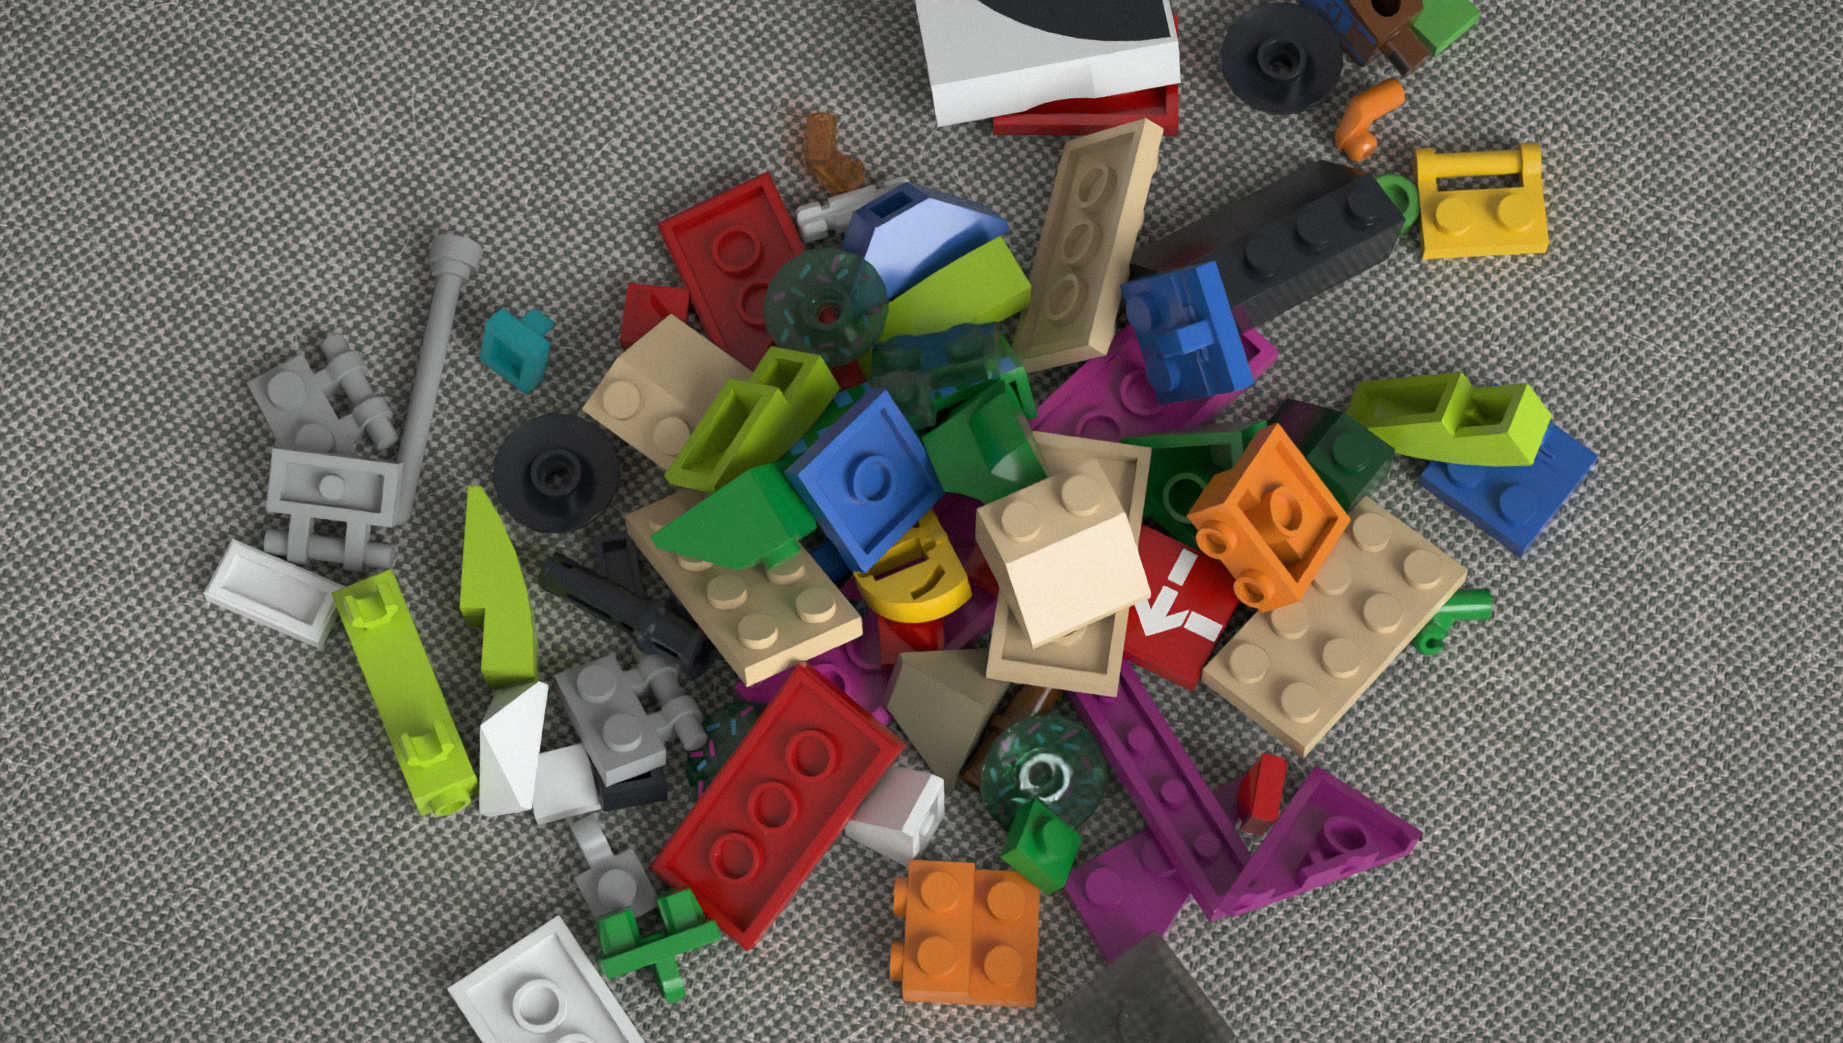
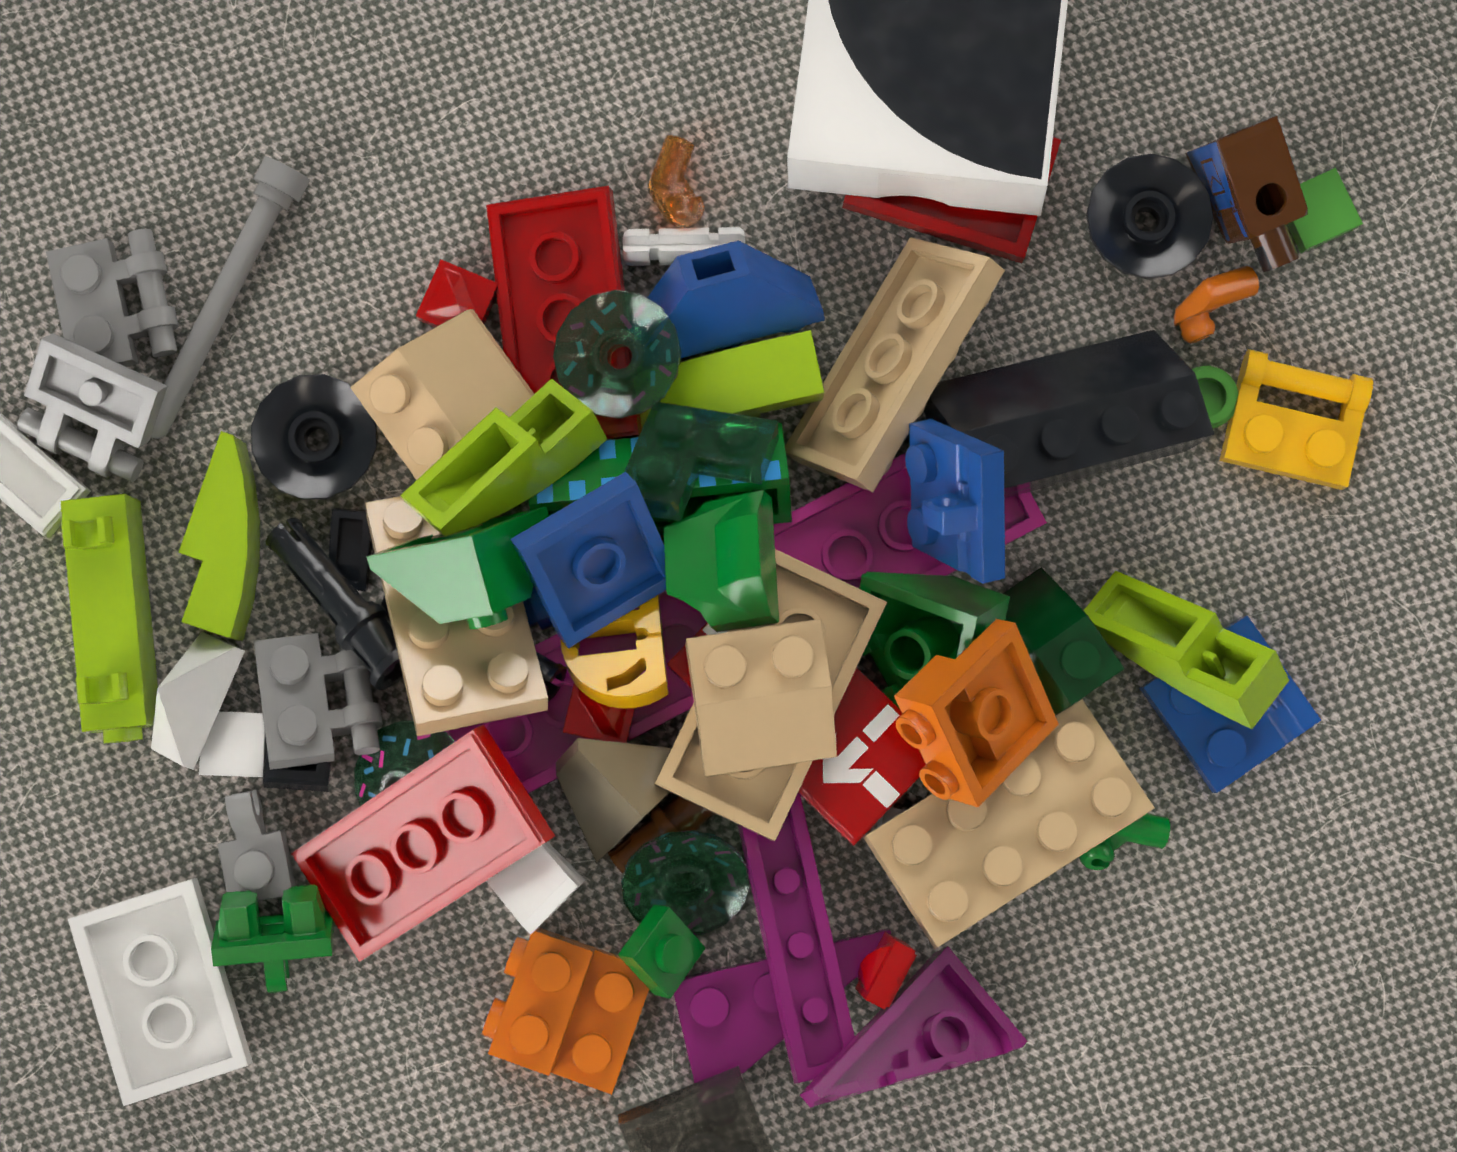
camera: 15 degrees right, 15 degrees up
(517, 347) = (314, 295): teal tile -> none

